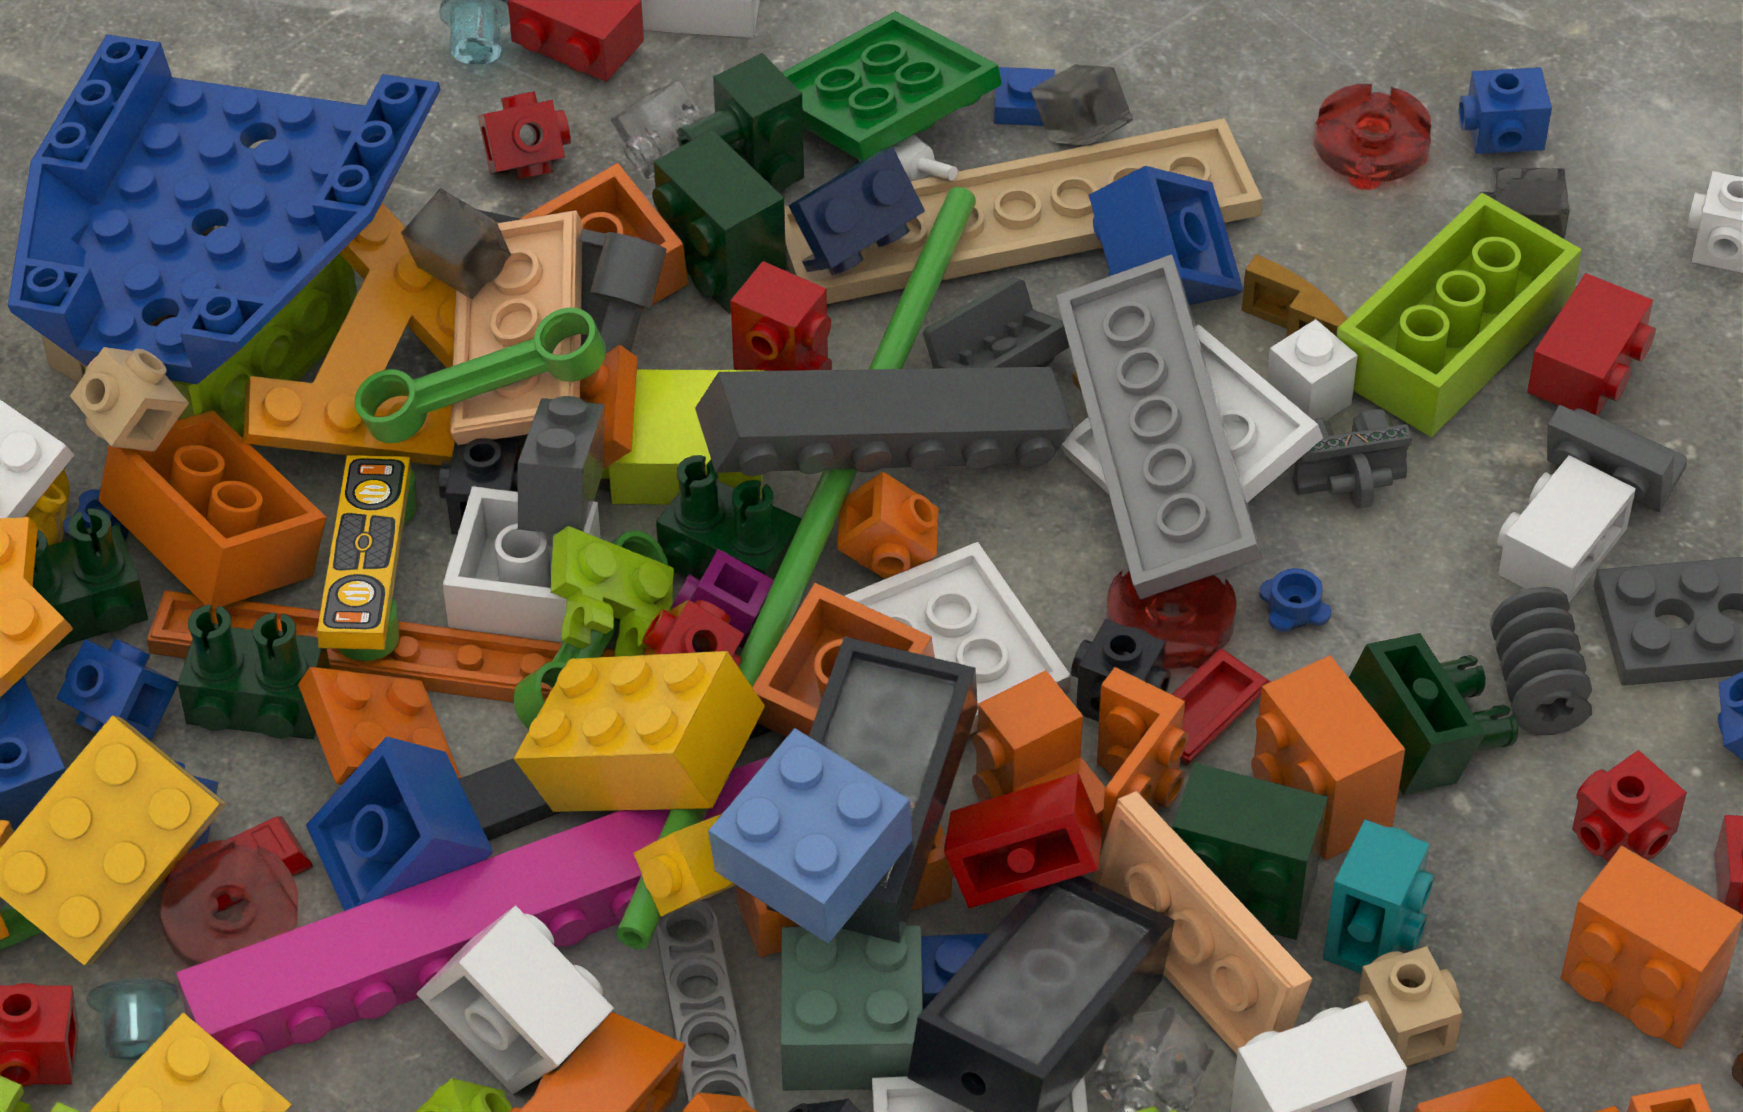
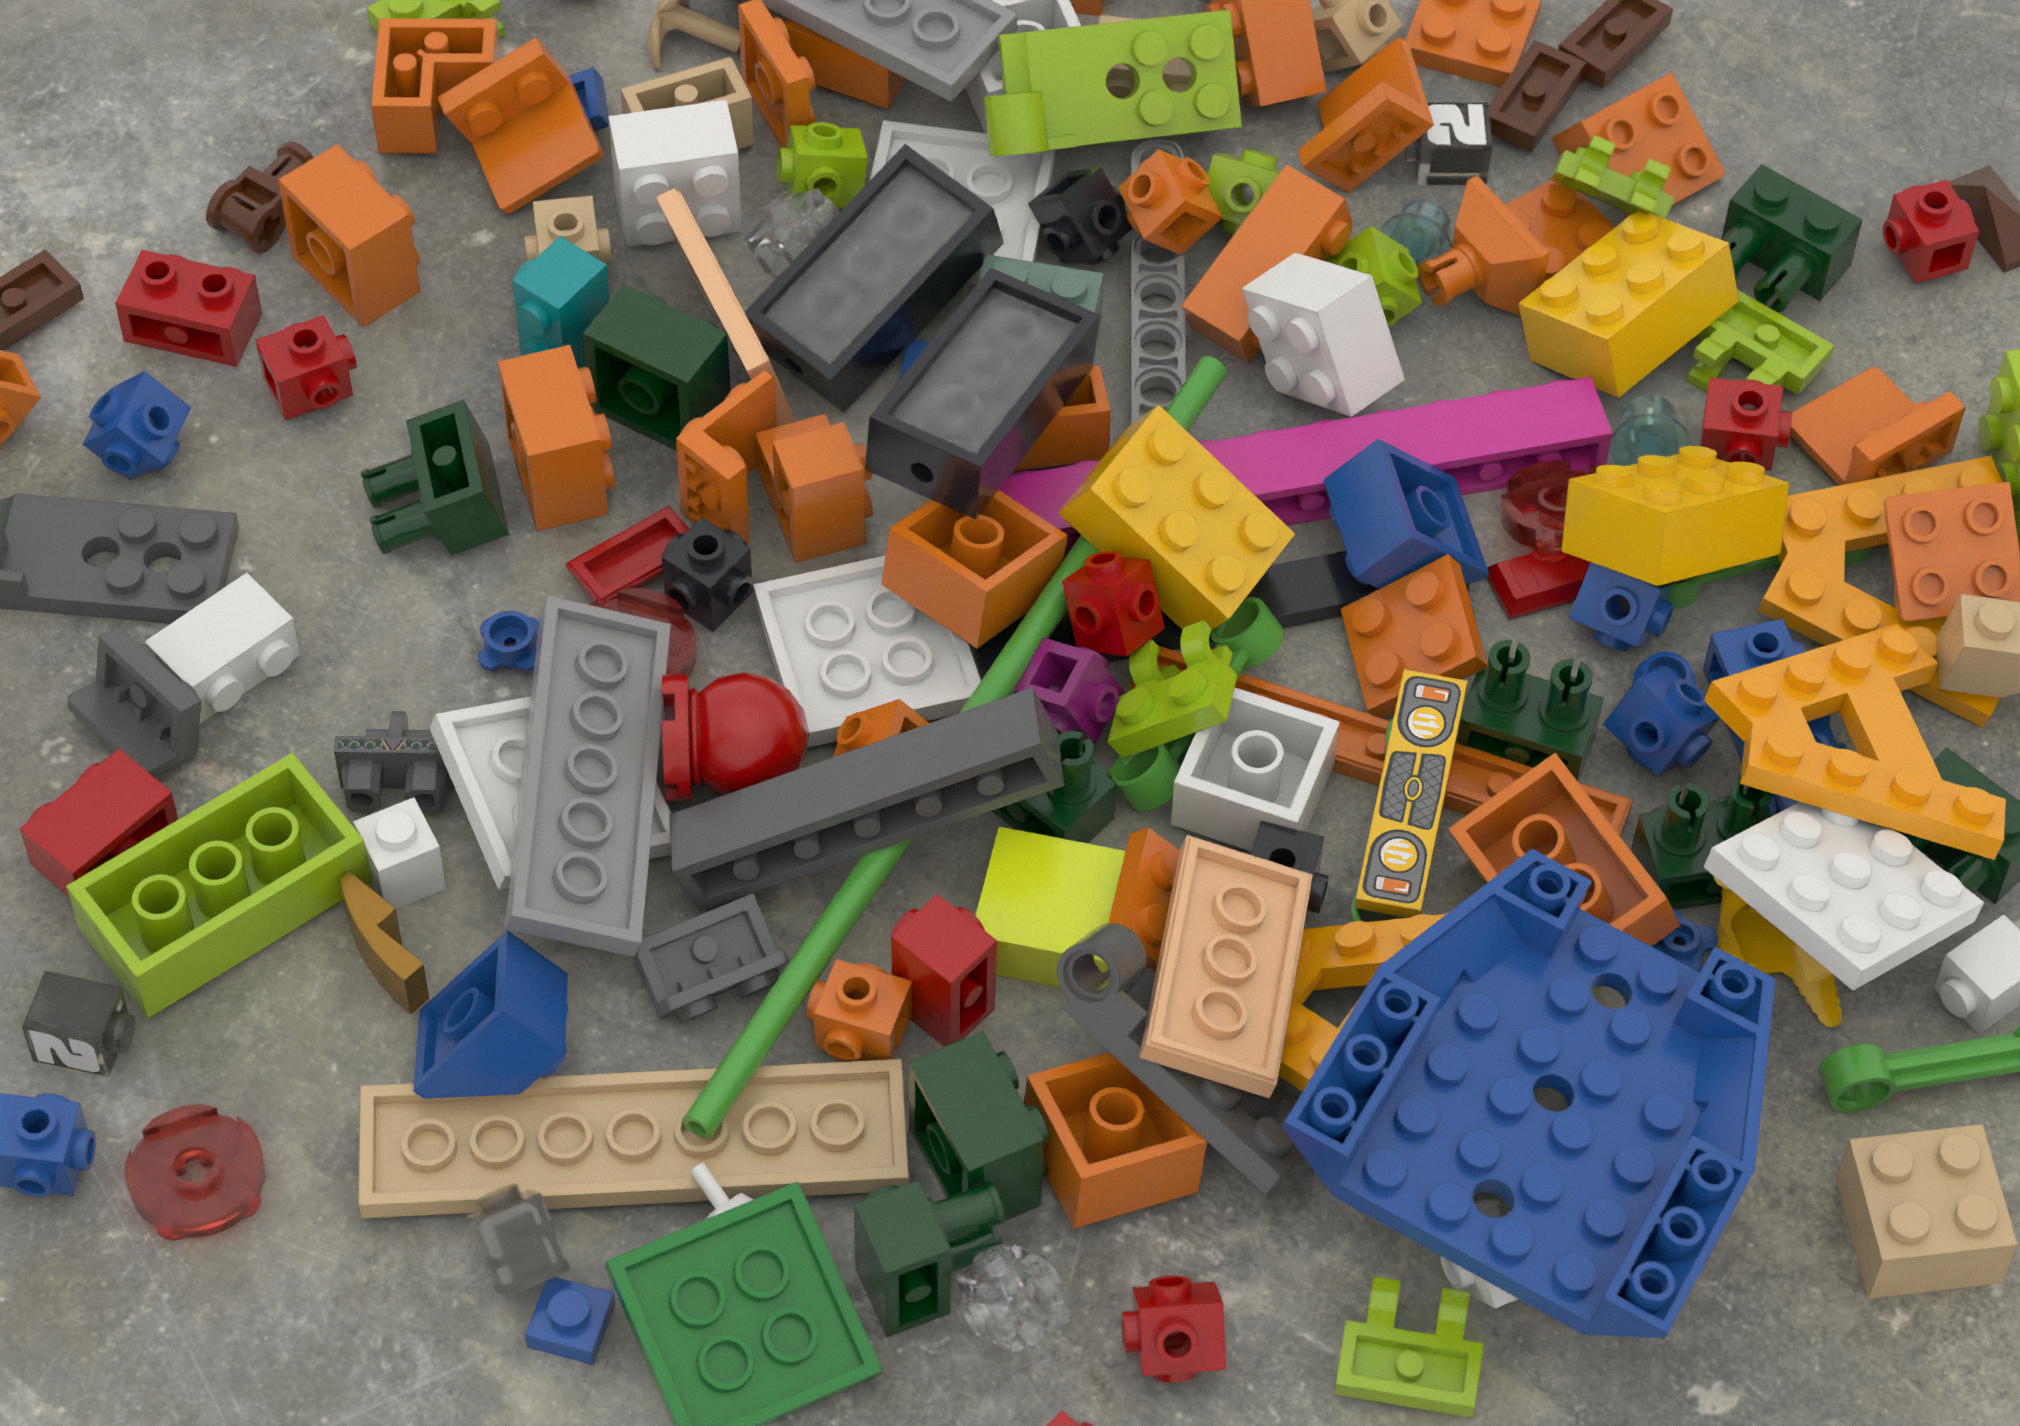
camera: 170 degrees left, 5 degrees up
(129, 399) = (1647, 889): tan brick -> none
(456, 244) = (1283, 1015): clear smoke brick -> none
(480, 375) = (1275, 887): bright green piece -> none
(561, 465) = (1208, 774): dark grey brick -> none
(681, 868) = (1150, 377): yellow brick -> none
(811, 835) = (1055, 287): medium blue brick -> none
(855, 211) = (826, 1079): dark blue bracket -> none
(856, 311) = (860, 1012): none -> orange brick
(1023, 840) = (843, 370): red brick -> none
(1036, 502) = (729, 733): none -> red tile
(1542, 661) = (311, 523): dark grey piece -> none

